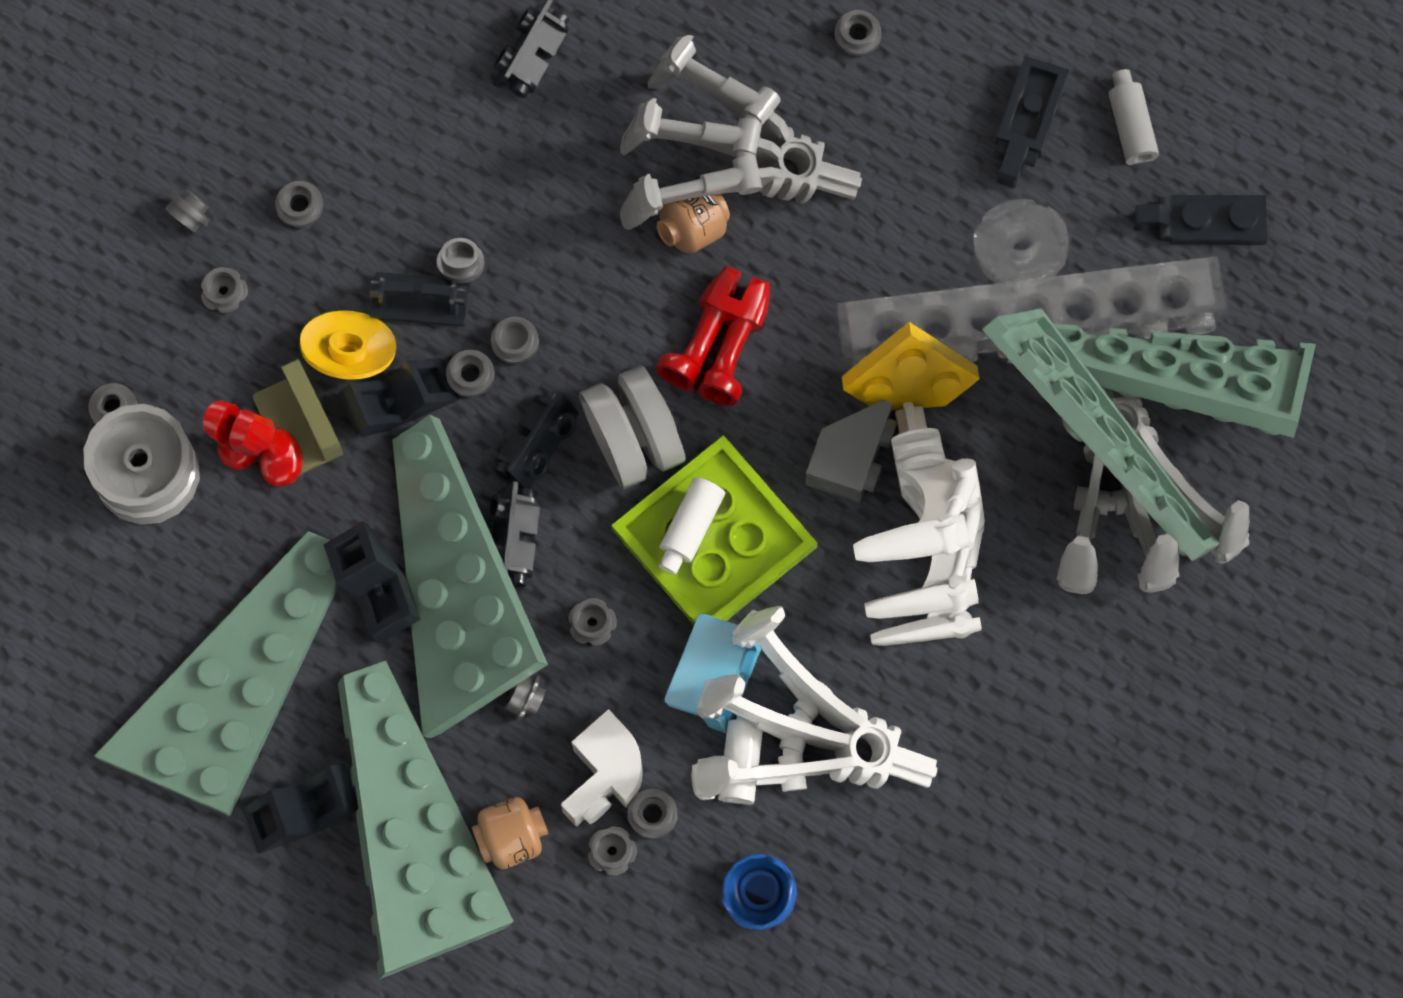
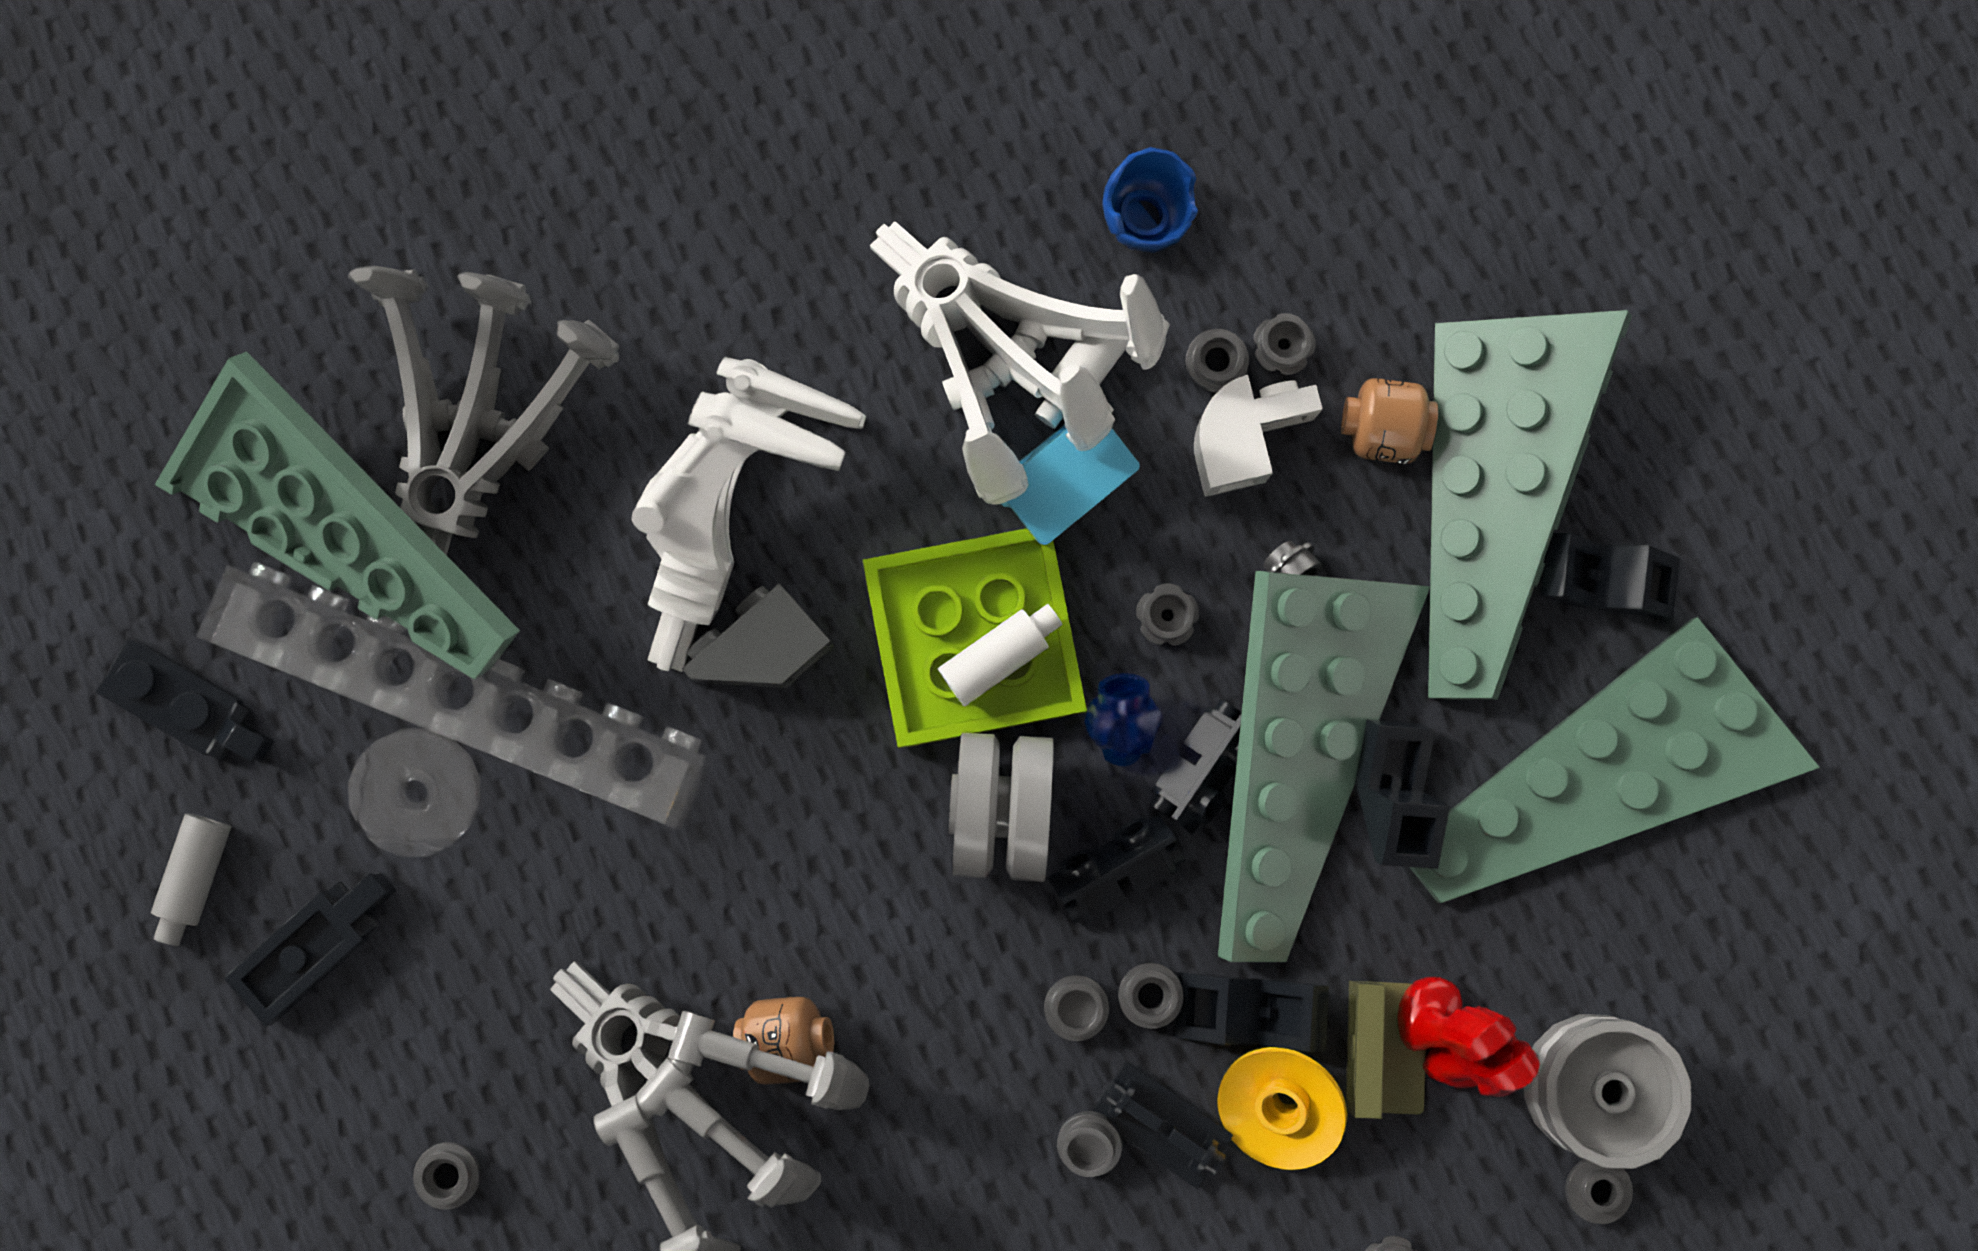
camera: 155 degrees left, 10 degrees up
(584, 533) = (1123, 718): none -> clear blue rock
(718, 309) = (795, 881): red piece -> none
(911, 369) = (636, 699): yellow plate -> none
(1091, 417) = (470, 526): sand green wing -> none

